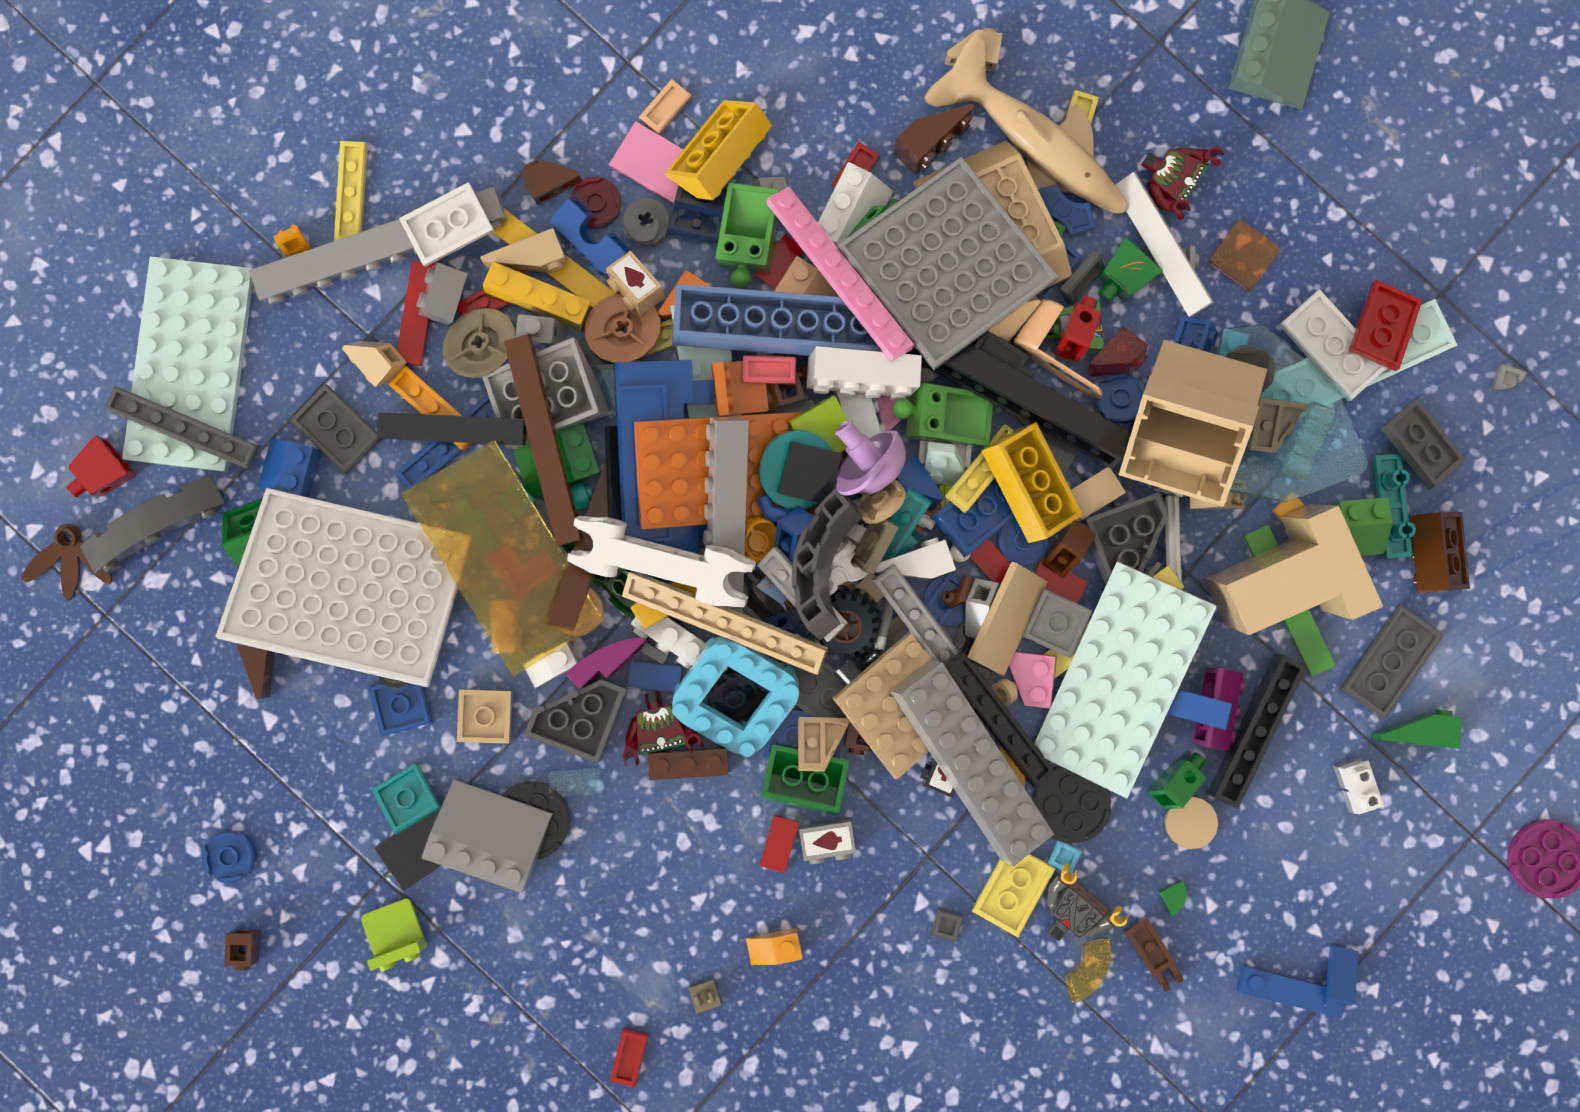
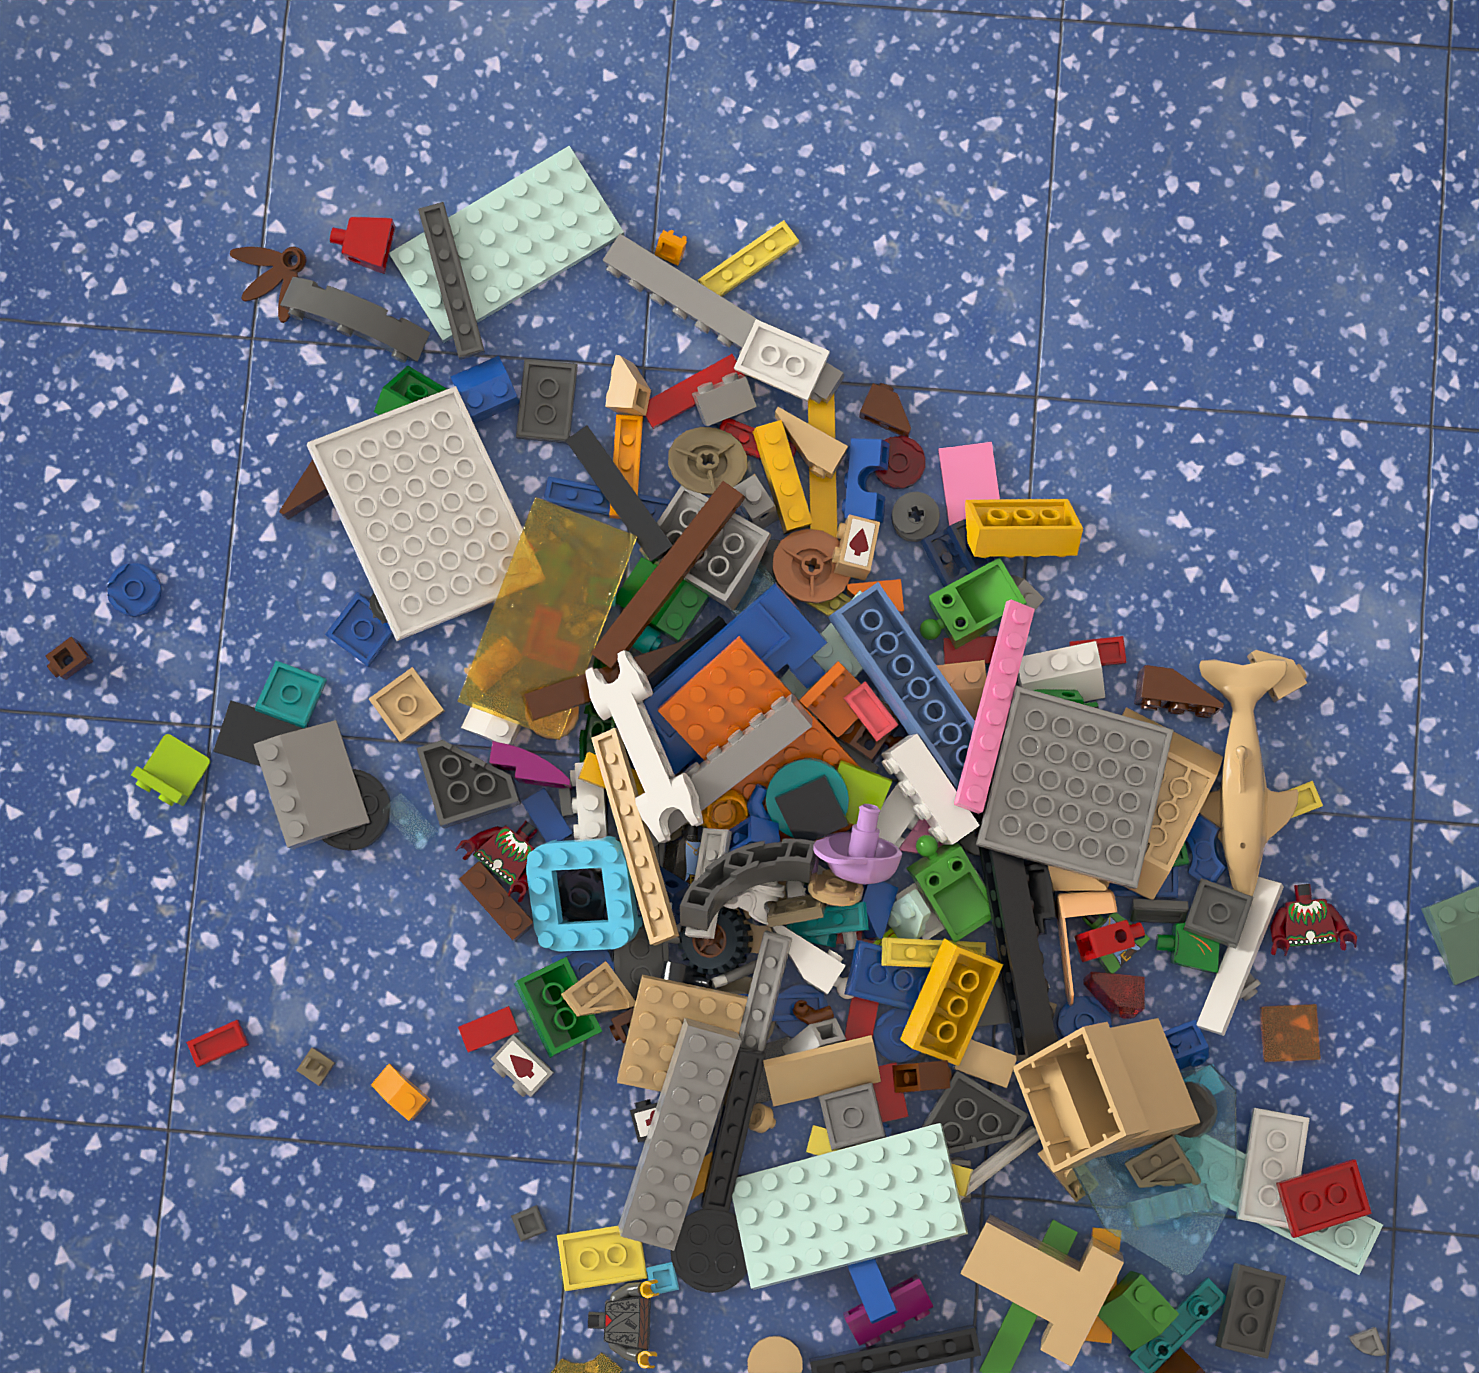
camera: 55 degrees right, 5 degrees down
(665, 107) = (1023, 456): light nougat tile -> none
(1034, 677) = (792, 1134): bright pink wing -> none
(1120, 234) = (1218, 913): none -> dark grey tile
(1178, 782) = (789, 1323): green torso -> none

